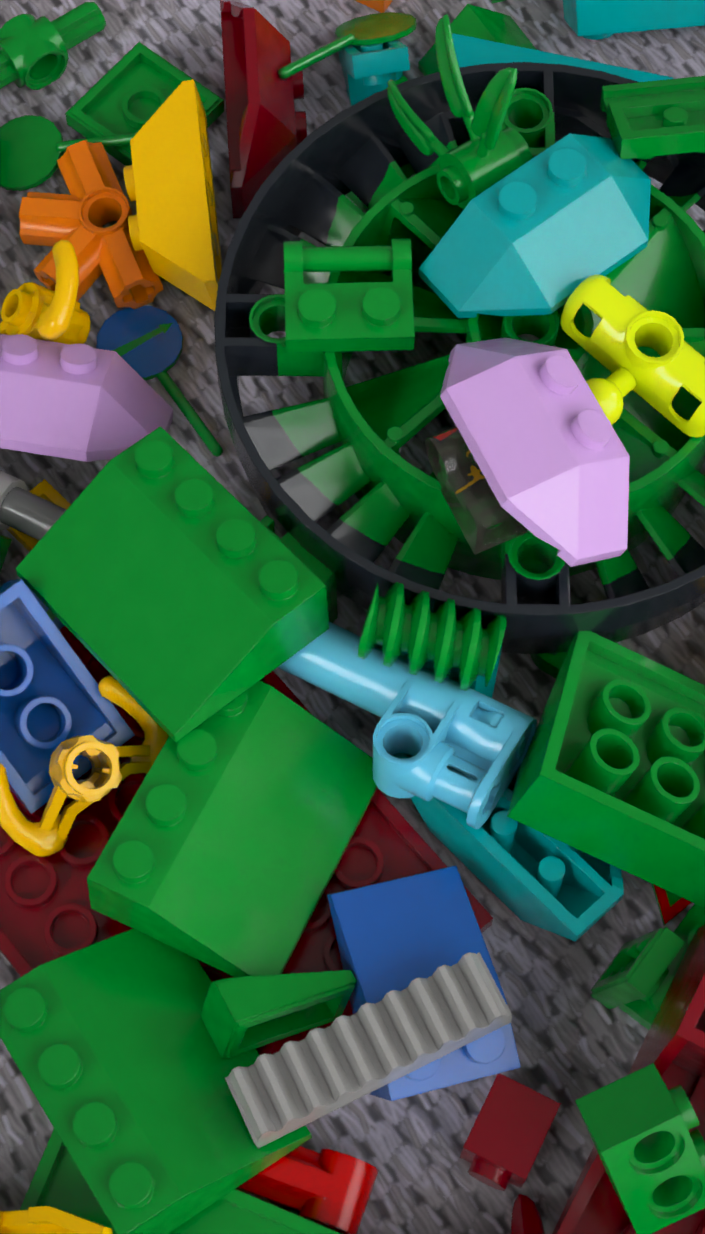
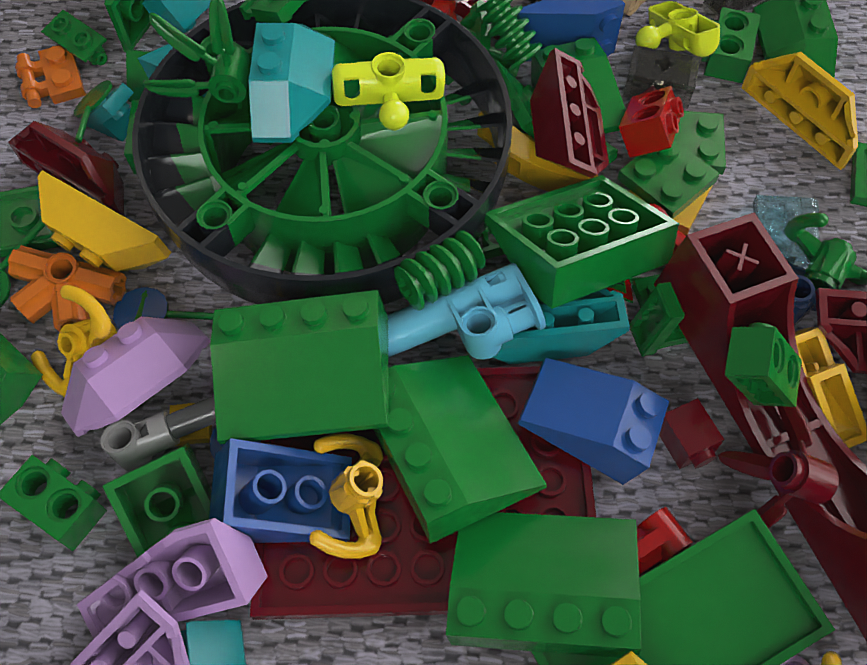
camera: 50 degrees left, 5 degrees down
(268, 1008) = (555, 495): green slope -> none
(348, 314) = (243, 183): green plate -> none
(368, 1049) = (622, 457): light grey gear -> none
(469, 493) = (388, 188): clear smoke leg -> none
(542, 444) = (395, 140): lavender wedge -> none

